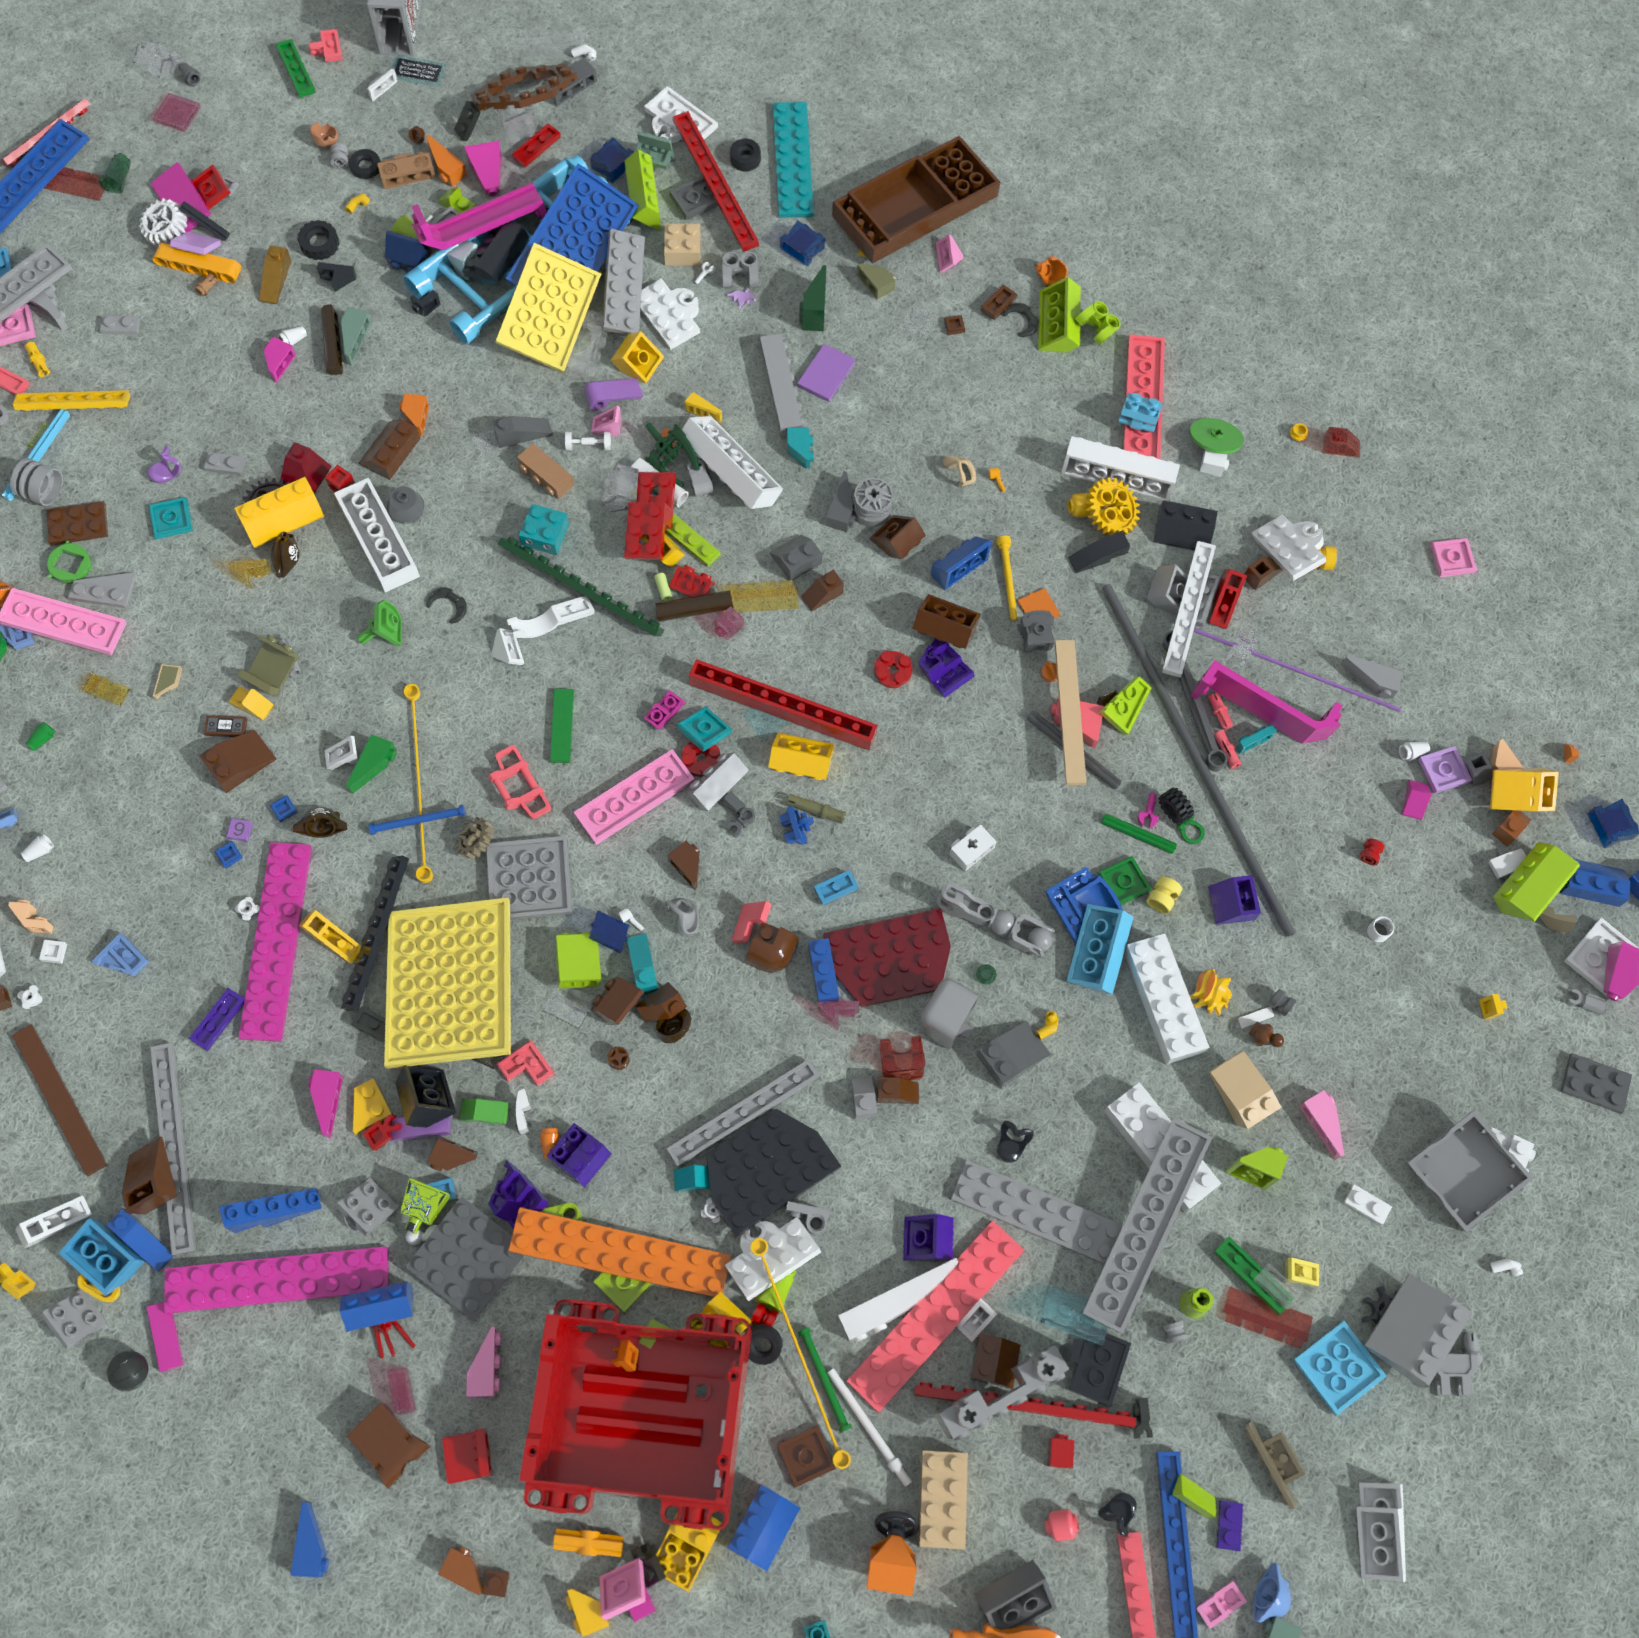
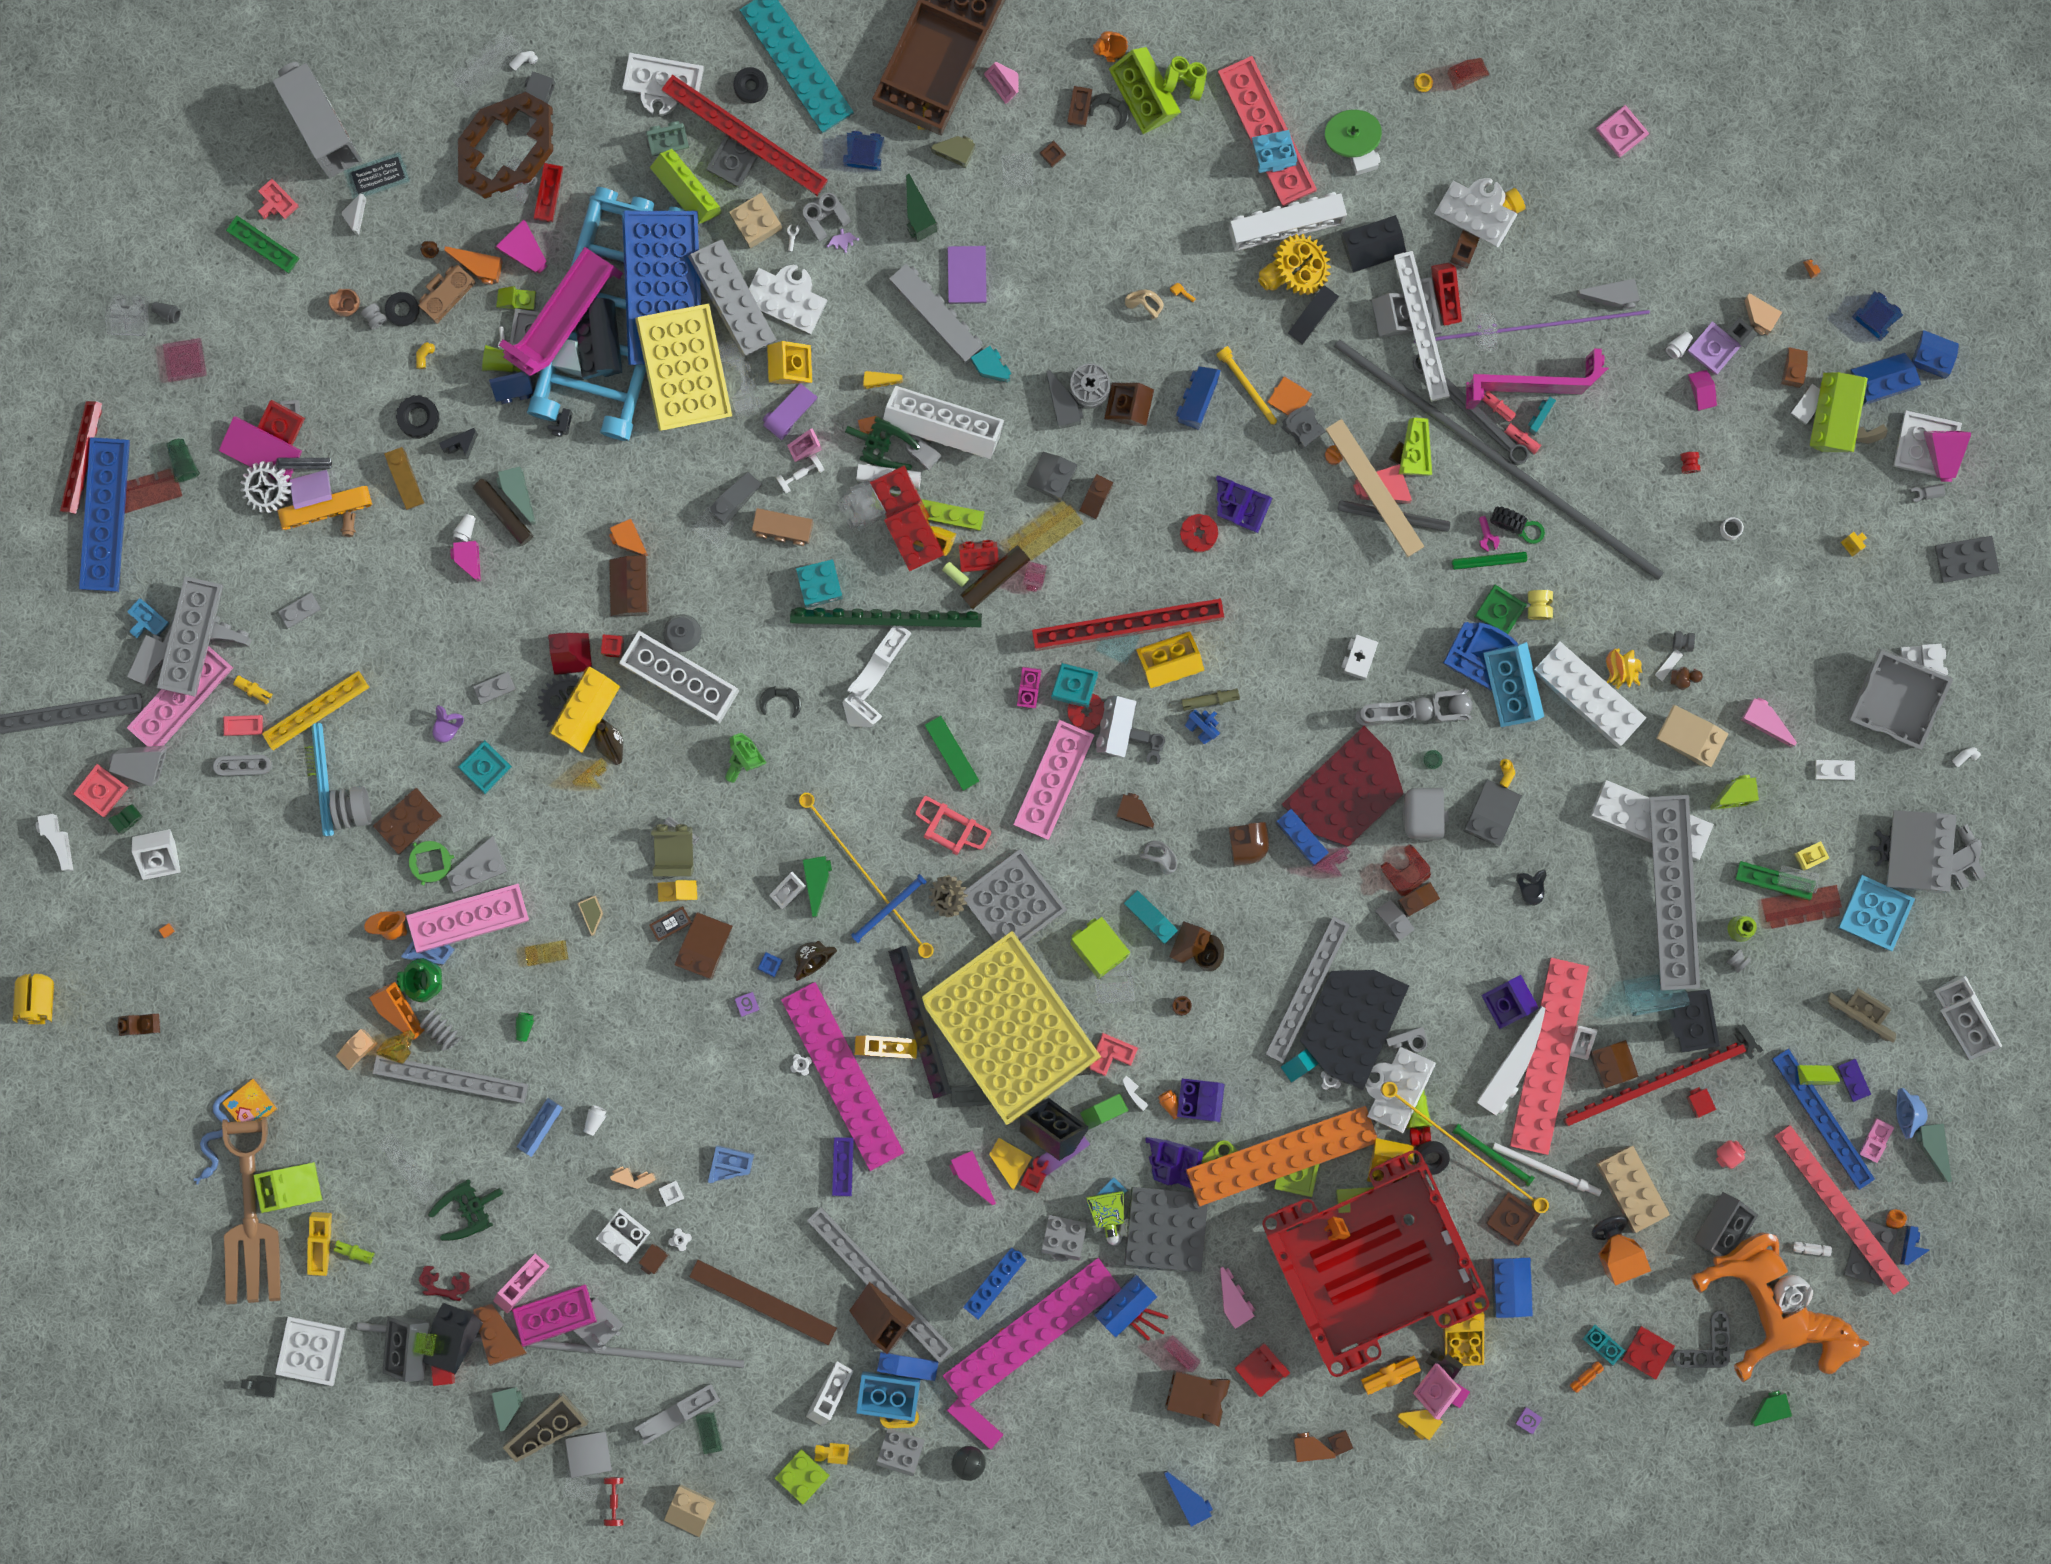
camera: 25 degrees left, 15 degrees up
(228, 854) = (752, 1029): blue tile -> none
(449, 1154) = (1100, 1160): reddish brown slope -> none
(467, 120) = (470, 208): pearl dark grey plate -> none
(609, 931) = (1109, 908): clear blue piece -> none
(610, 160) = (630, 166): clear blue hips -> none
(615, 1000) = (1153, 962): reddish brown slope -> none
(627, 915) = (1111, 886): white hand -> none
(750, 914) = (1213, 829): coral tile -> none
(836, 887) = (1268, 759): dark azure plate -> none
(946, 621) = (1222, 464): reddish brown brick -> none
(1031, 1376) = (1651, 1060): light grey piece -> none
(1036, 1212) = (1581, 930): light grey plate -> none
(1121, 1509) = (1769, 1115): black piece -> none
(1234, 900) = (1600, 575): dark purple slope -> none
(1524, 789) = (1789, 332): yellow slope -> none

